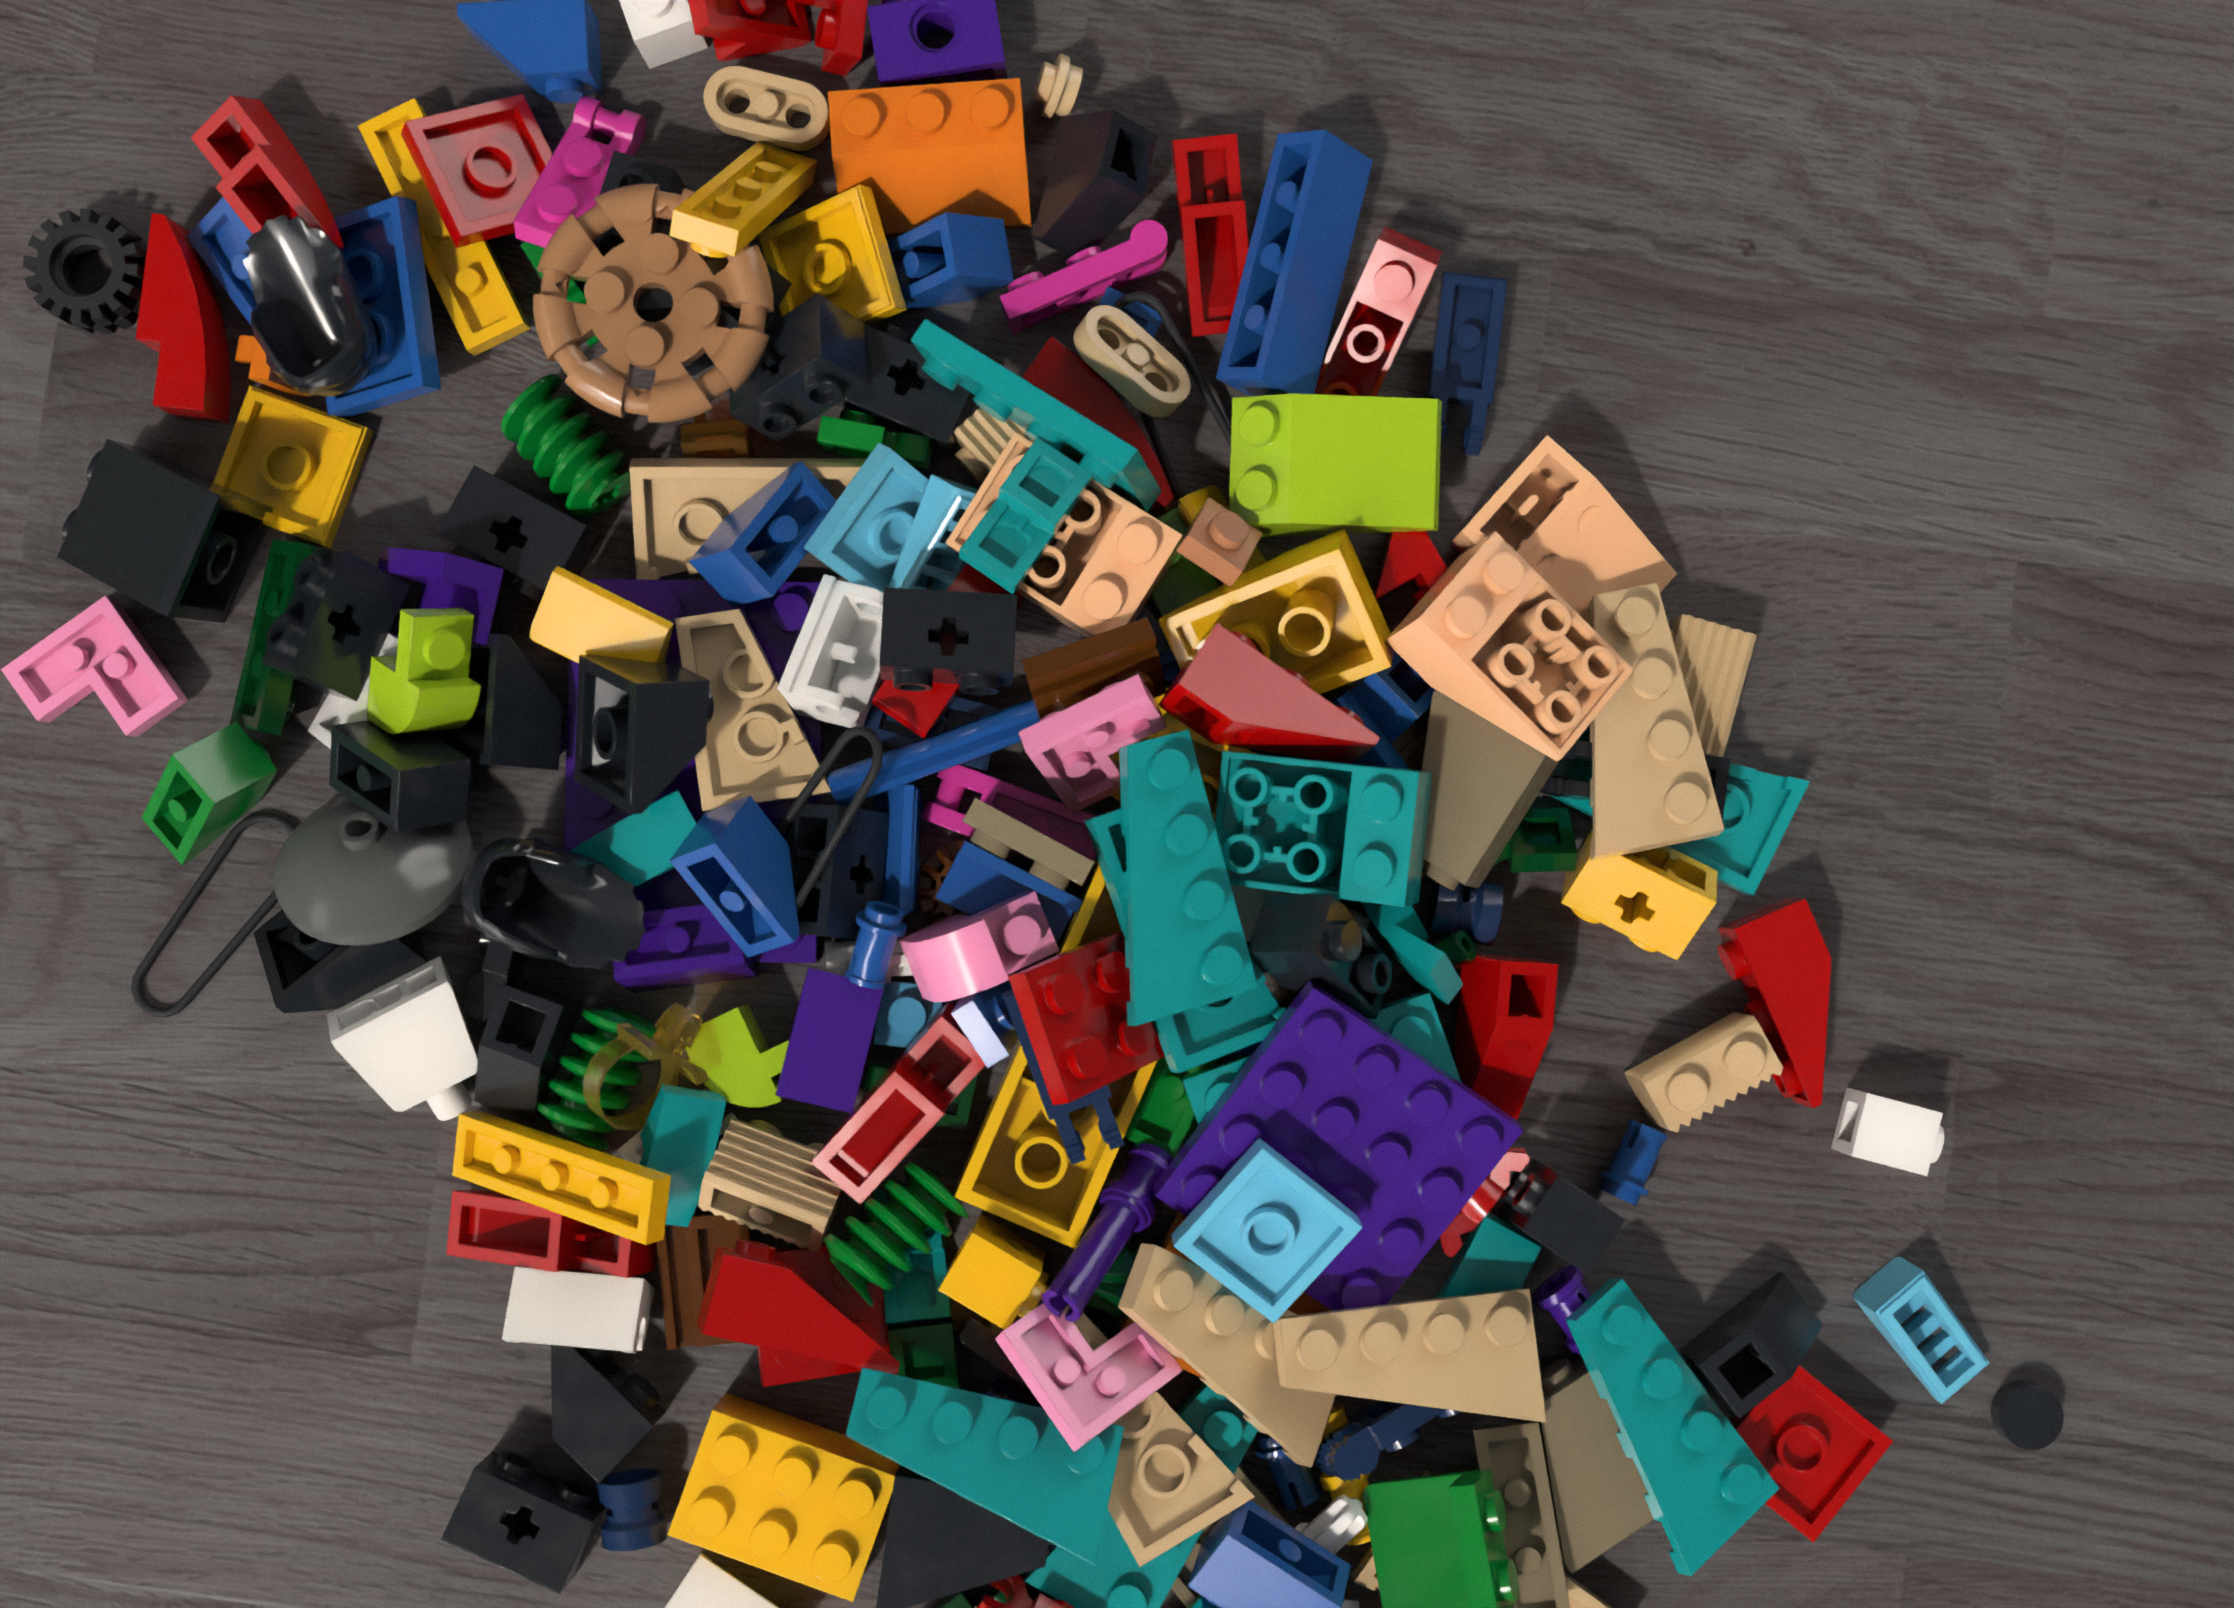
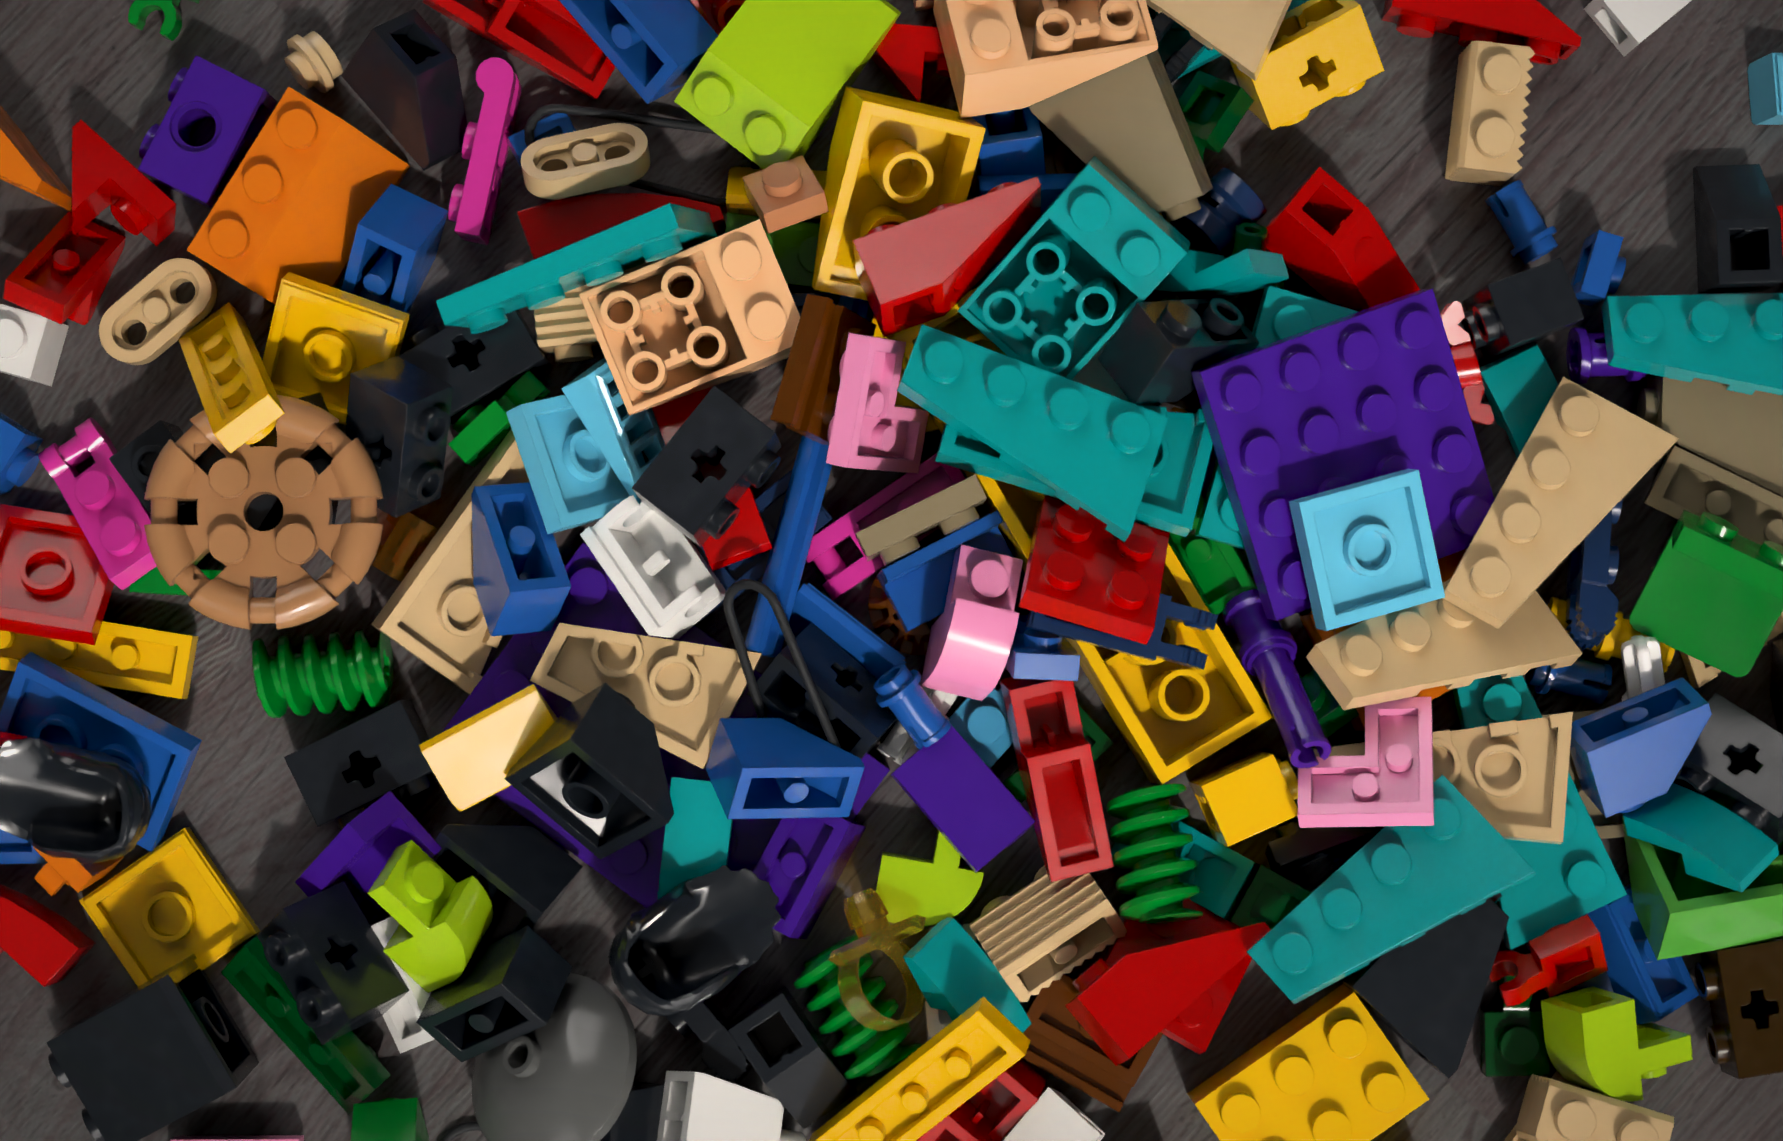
camera: 55 degrees left, 0 degrees up
(1025, 515) = (655, 332): teal slope -> none
(1641, 1252) = (1598, 268): none -> blue plate

